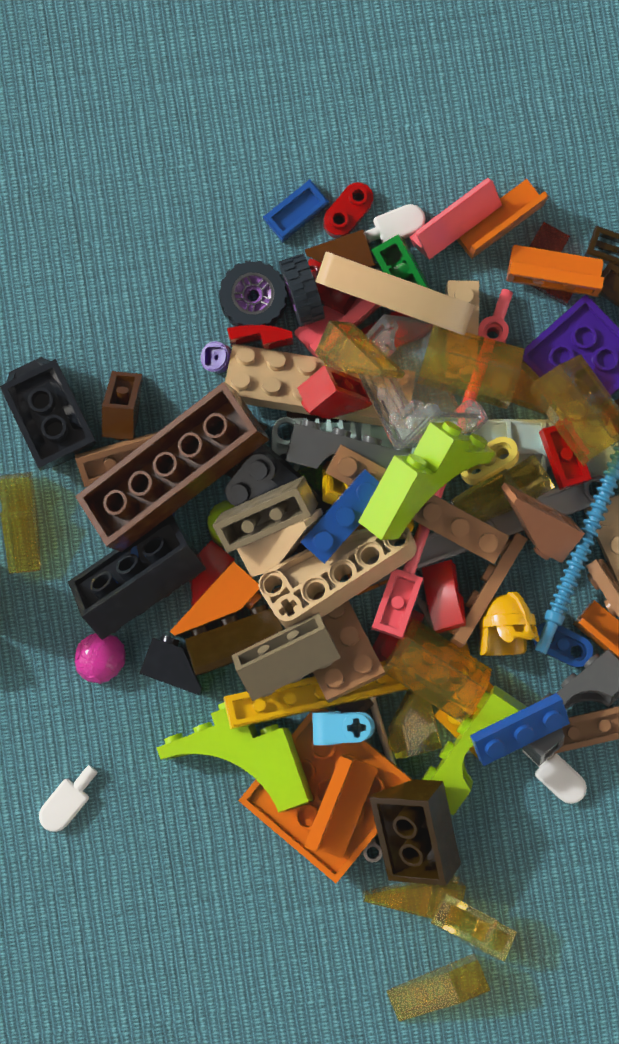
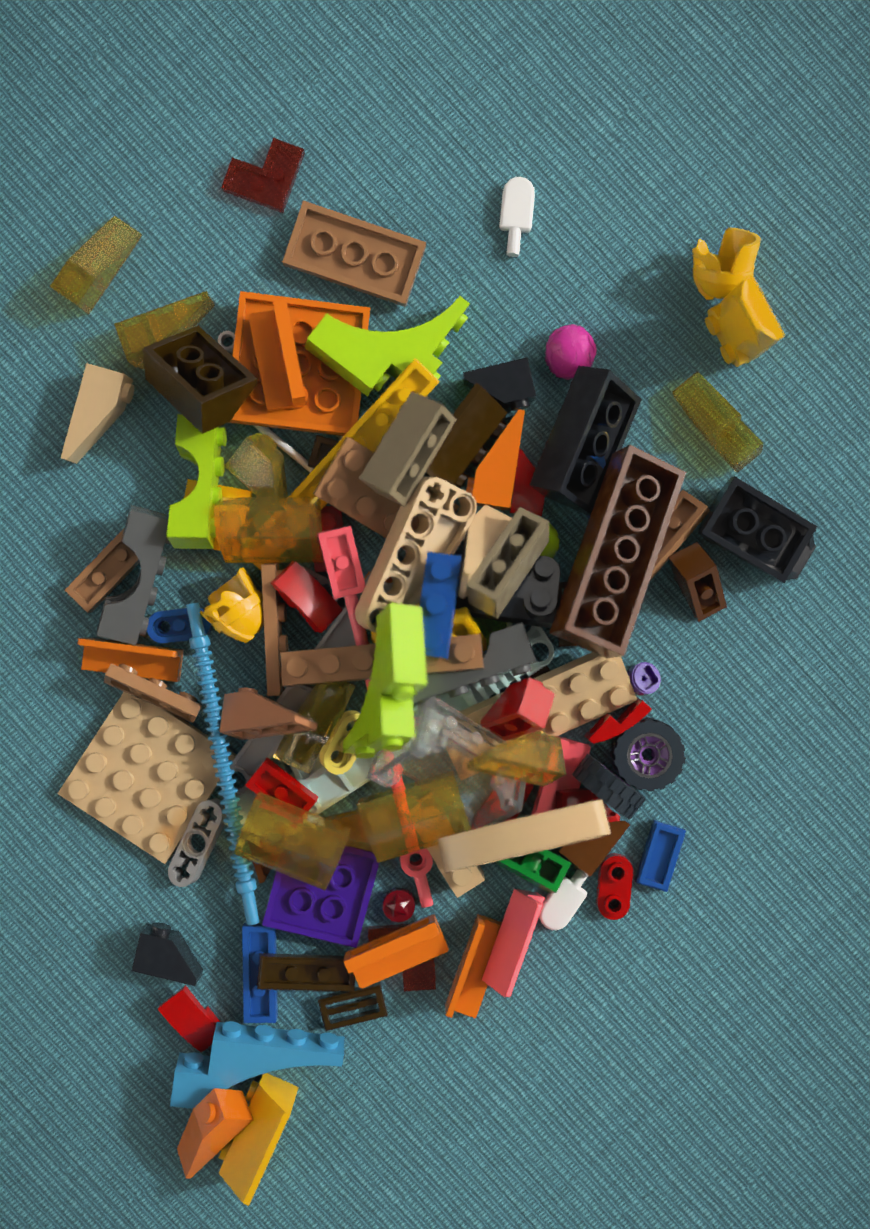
camera: 150 degrees right, 5 degrees up
(221, 855) = (354, 253): none -> medium nougat plate
(255, 961) = (266, 185): none -> clear red tile
(336, 727) = (325, 420): medium azure piece -> none
(473, 927) = (97, 329): clear yellow slope -> none
(514, 868) = (98, 405): none -> tan slope
(520, 729) = (163, 521): blue plate -> none
(530, 306) = (399, 905): none -> dark red tile
(561, 779) = (105, 508): white piece -> none

